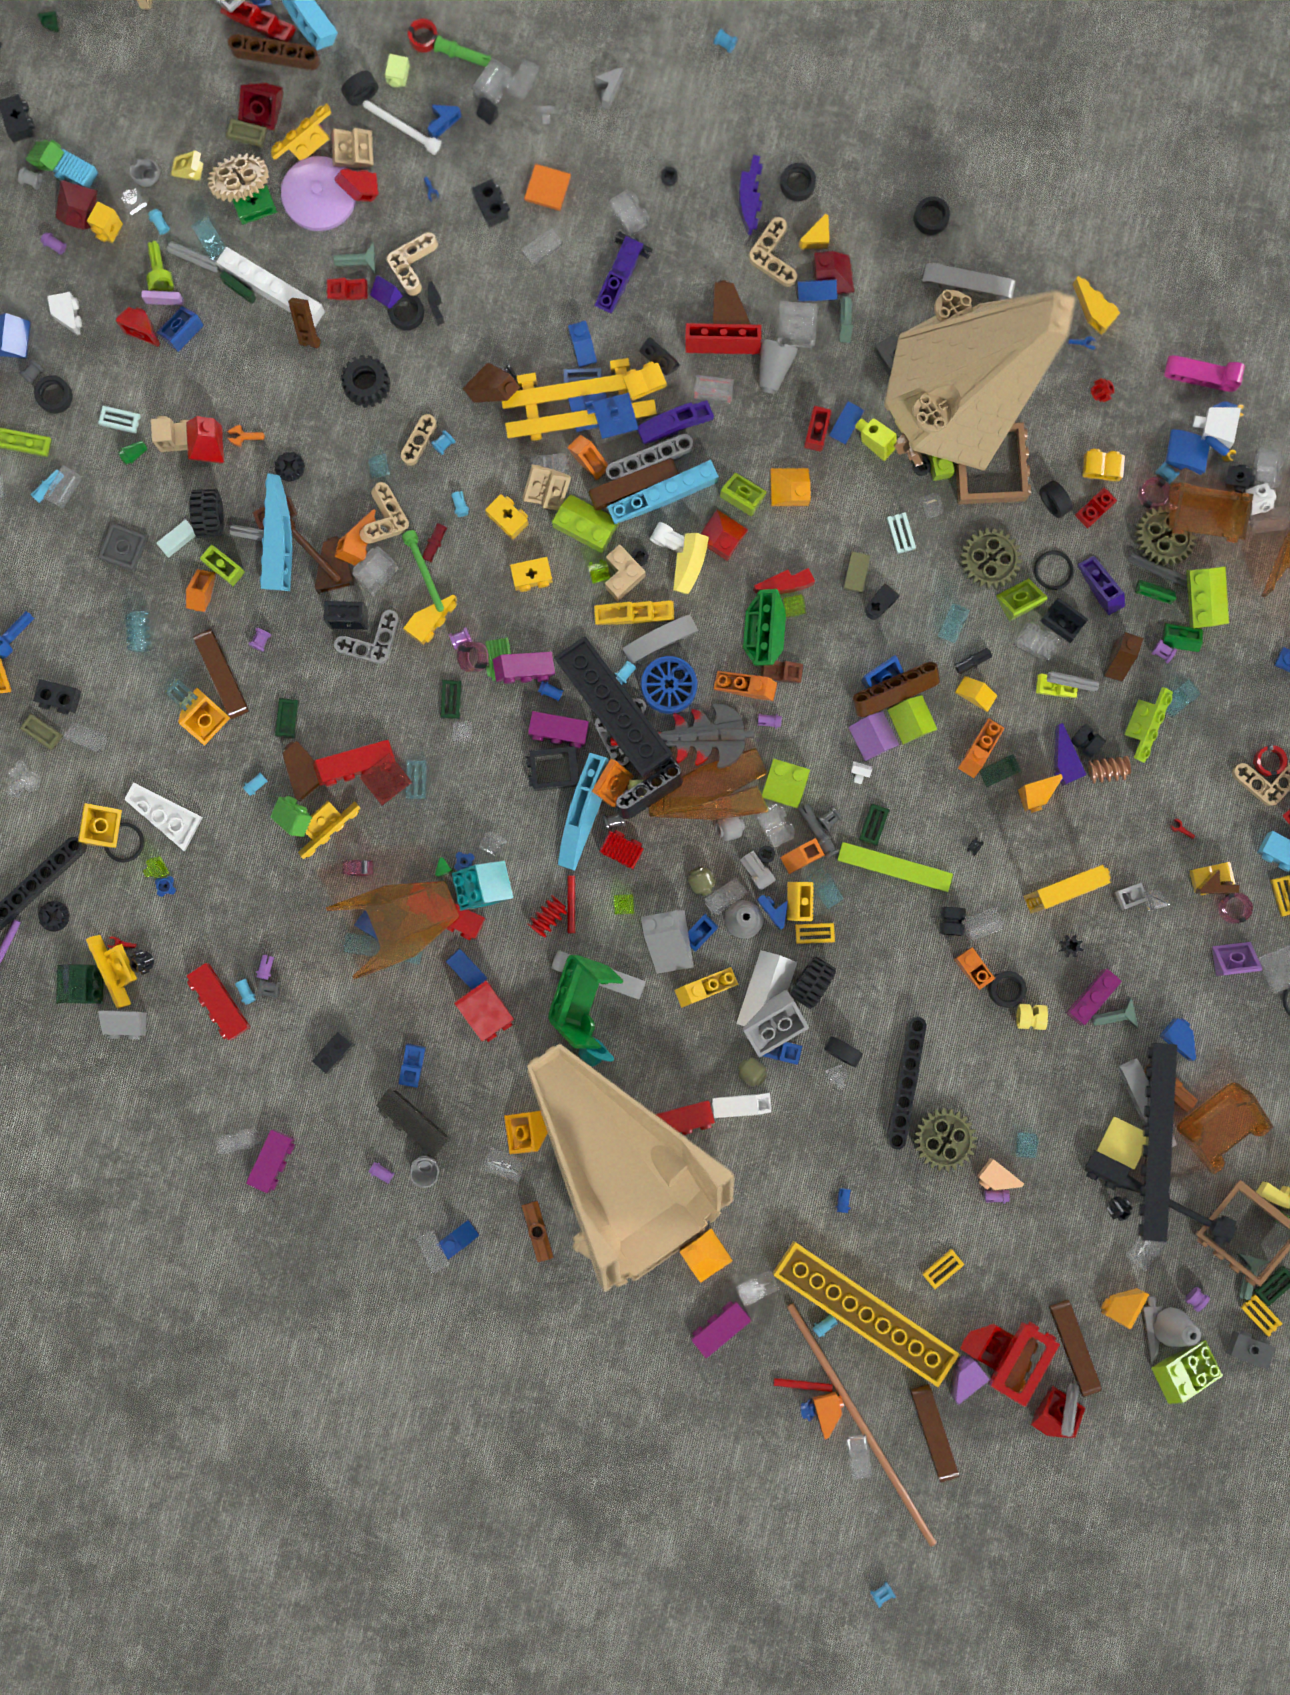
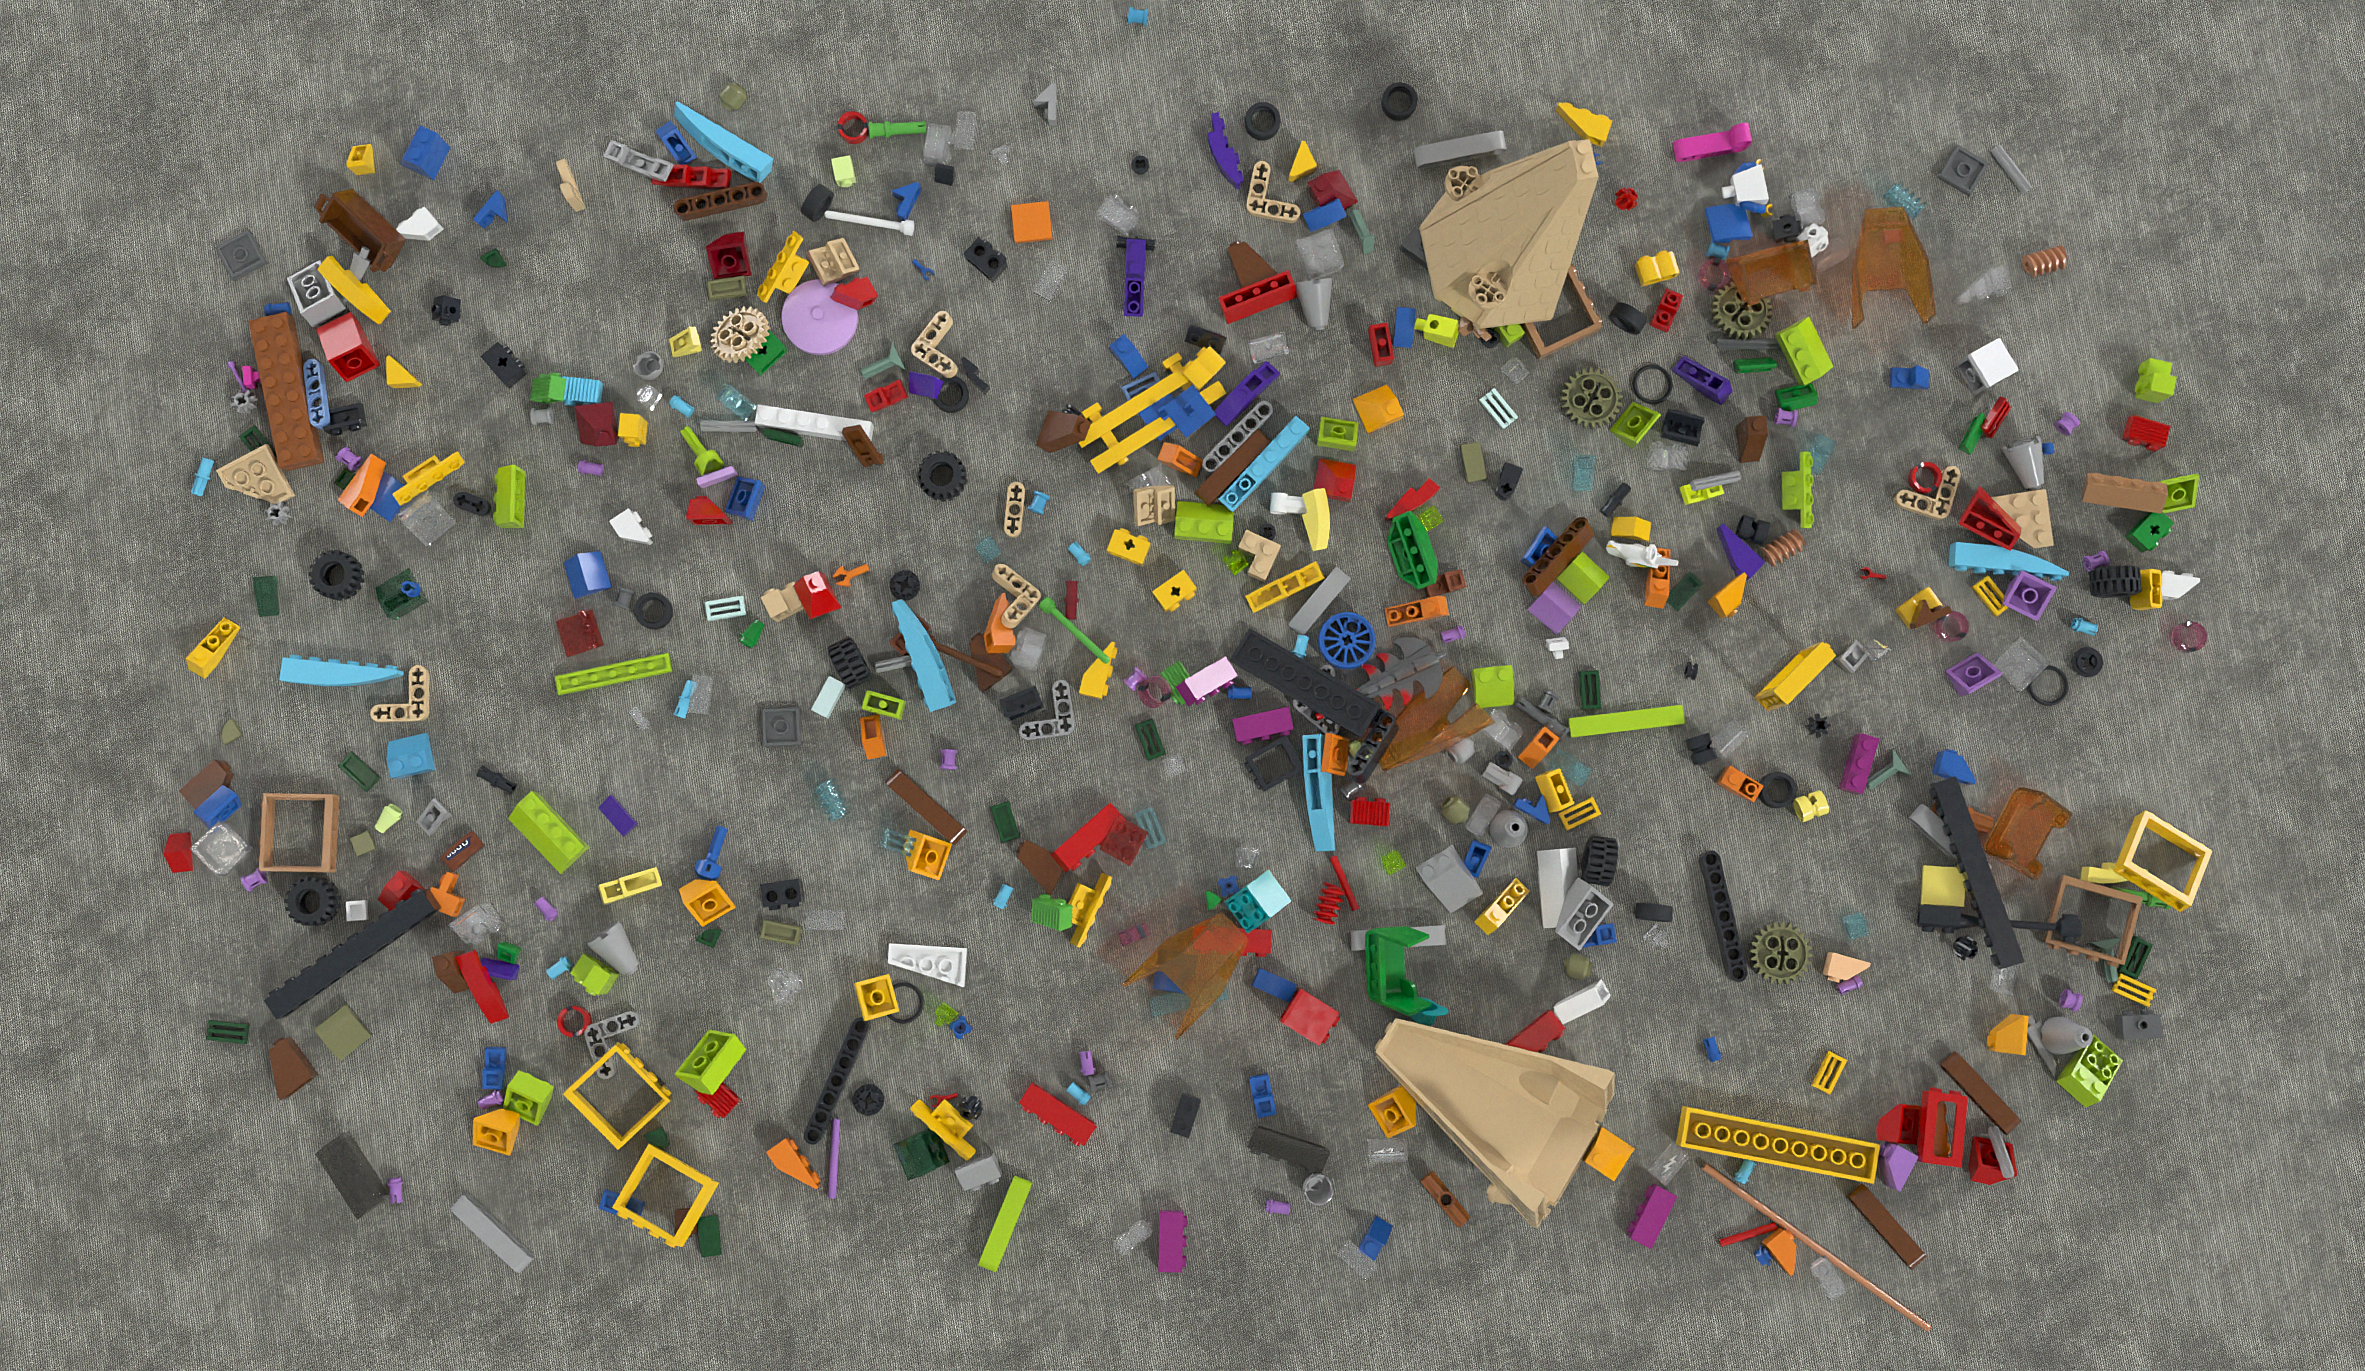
camera: 25 degrees left, 0 degrees up
(127, 1080) = (1005, 1224): none -> lime beam
(972, 719) = (1639, 555): none -> white animal

